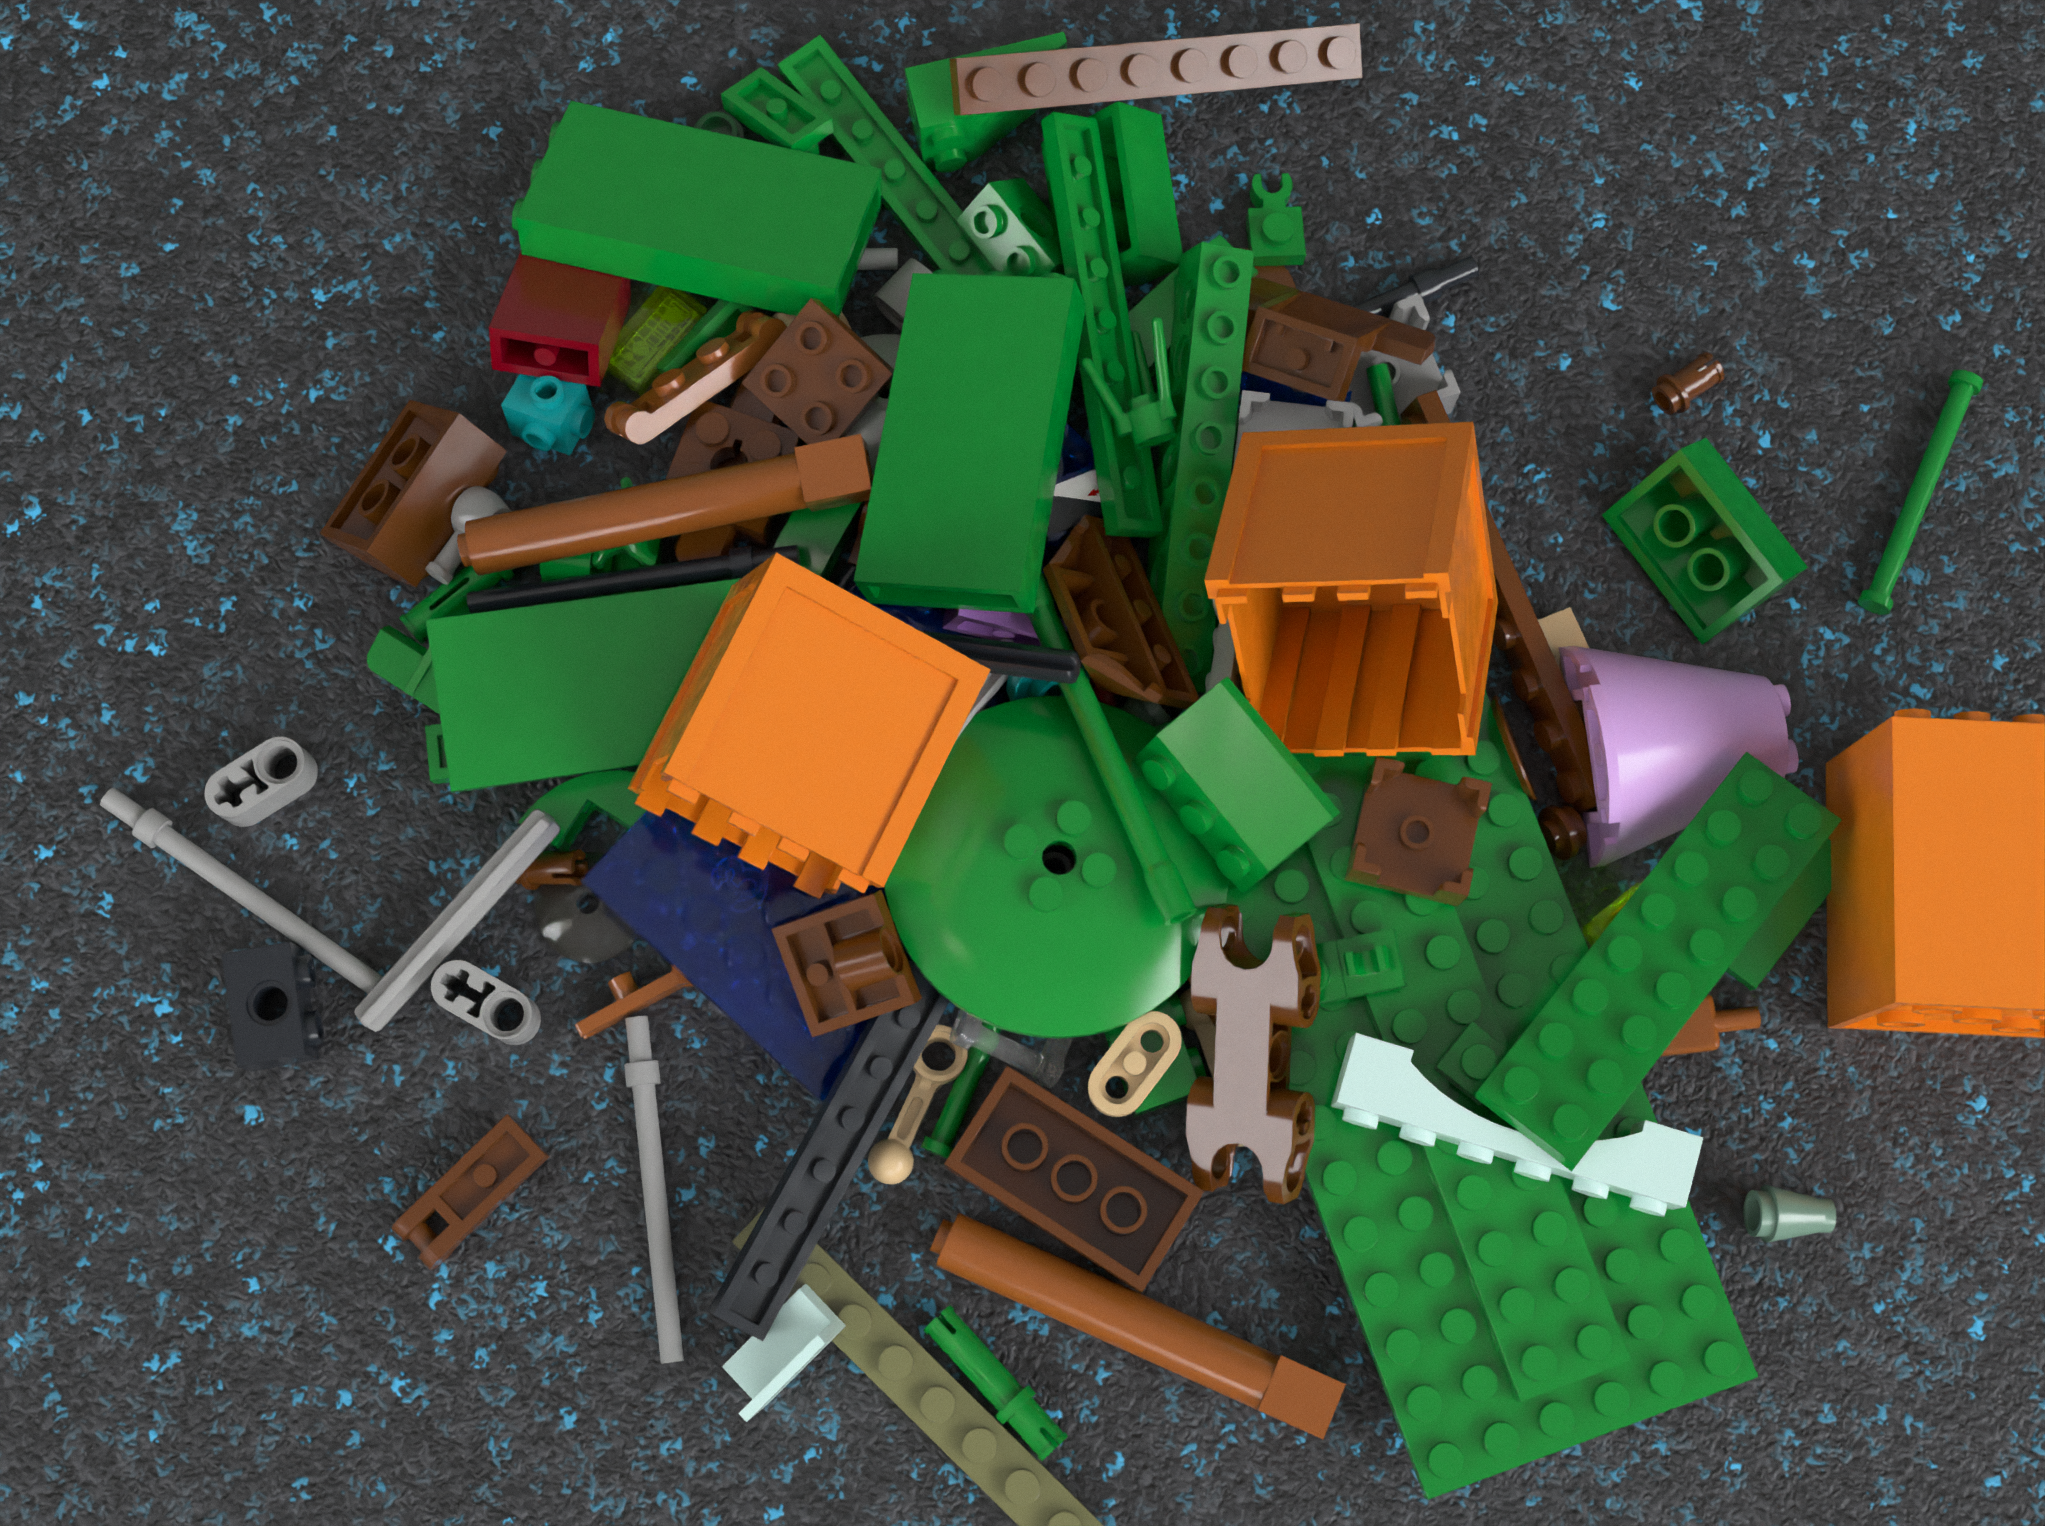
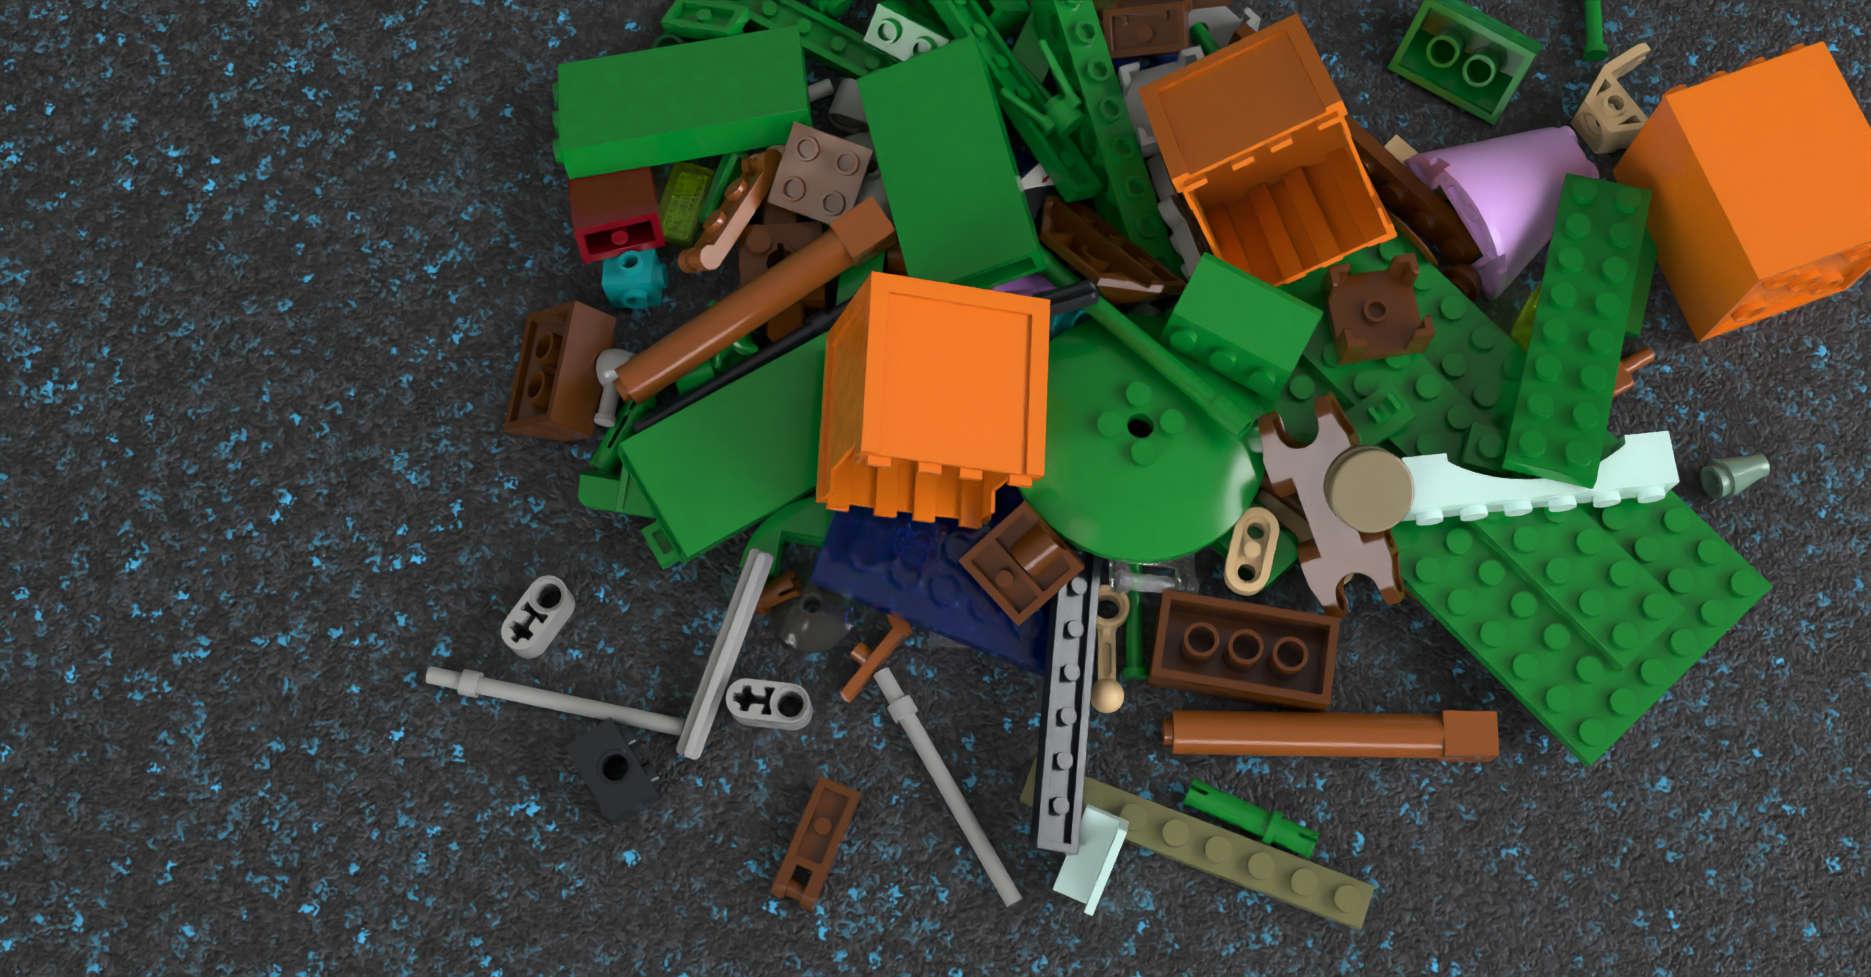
camera: 20 degrees left, 5 degrees down
(1294, 1055) = (1368, 488): none -> dark tan head
(1847, 689) = (1619, 126): none -> tan piece

